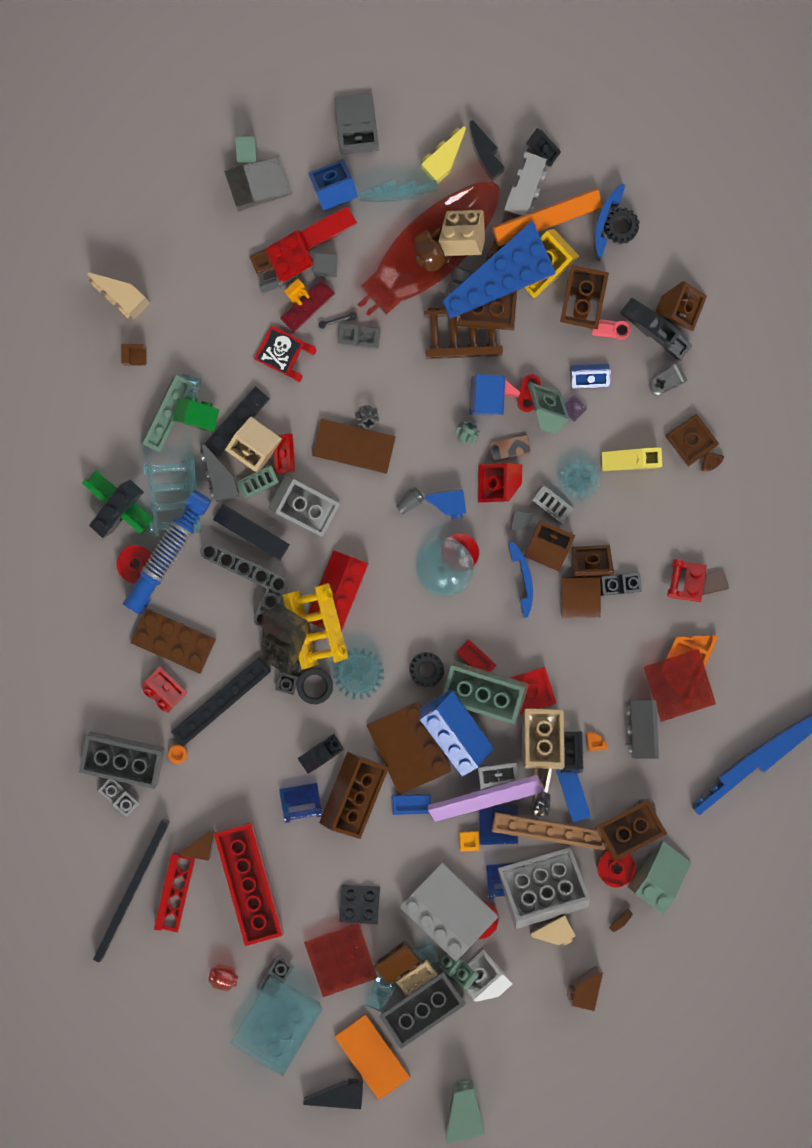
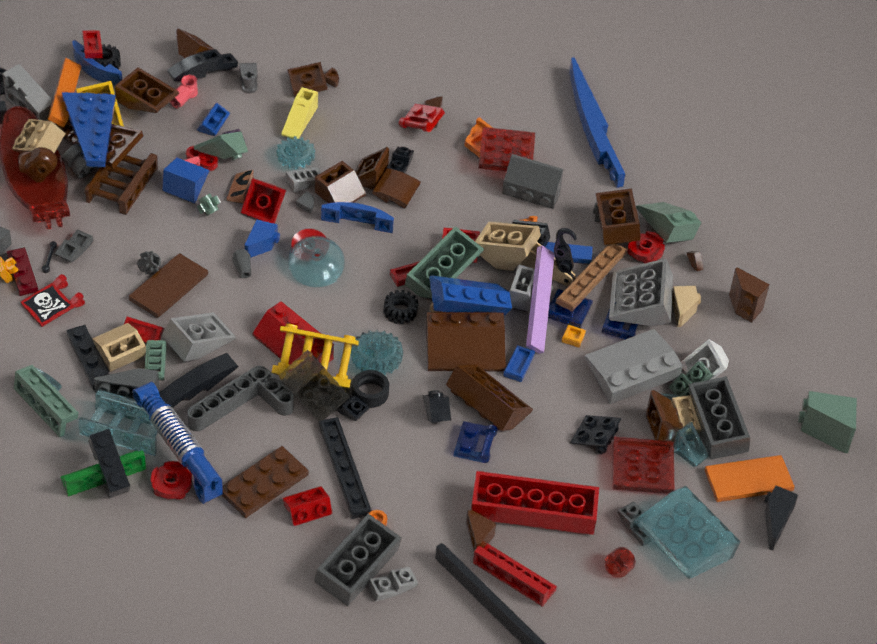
camera: 75 degrees left, 40 degrees down
(196, 414) = (62, 373): green brick -> none
(623, 207) = (92, 44): none -> red plate

